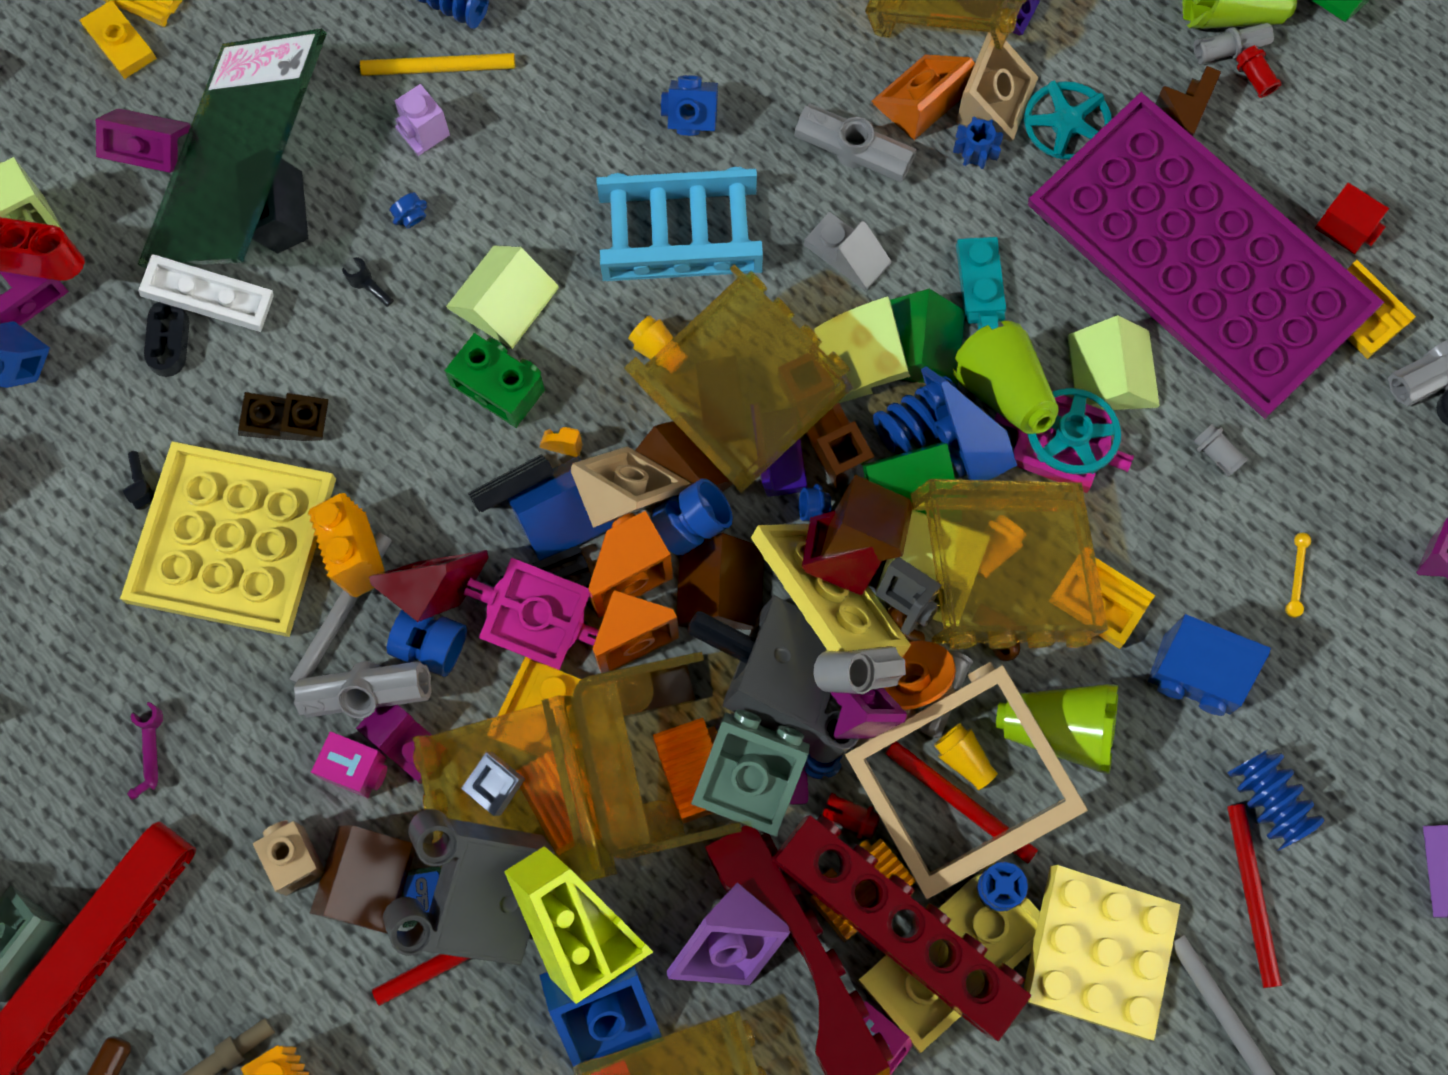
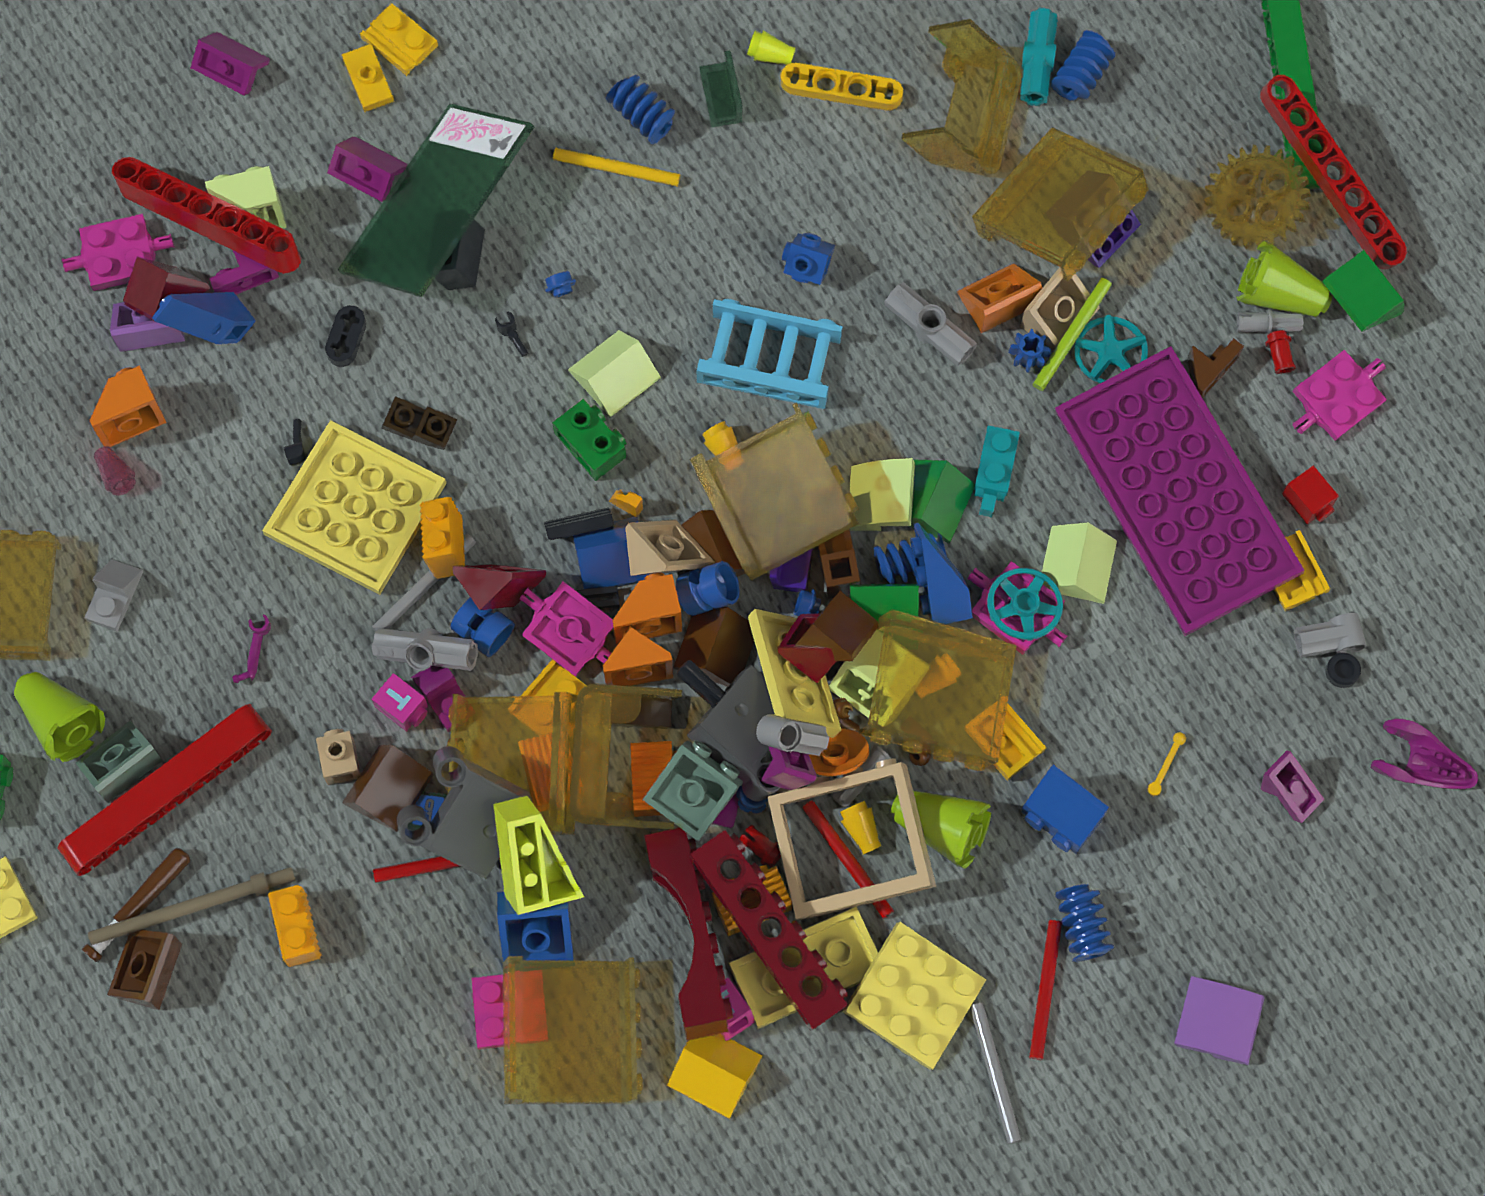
camera: 15 degrees right, 0 degrees up
(206, 293) = (386, 309): white plate -> none
(420, 120) = (589, 212): lavender brick -> none
(493, 783) = (502, 745): sand blue tile -> none
(731, 942) = (641, 907): medium lavender slope -> none
(849, 250) = (898, 410): light grey slope -> none
(910, 593) = (852, 691): dark grey bracket -> none
(1007, 376) = (984, 546): lime cone -> none
(1008, 881) = (852, 919): blue wheel -> none
(1019, 112) = (1072, 334): none -> lime bar
(1220, 450) = (1138, 650): light grey pin -> none
(1339, 102) = (1339, 395): none -> dark pink plate

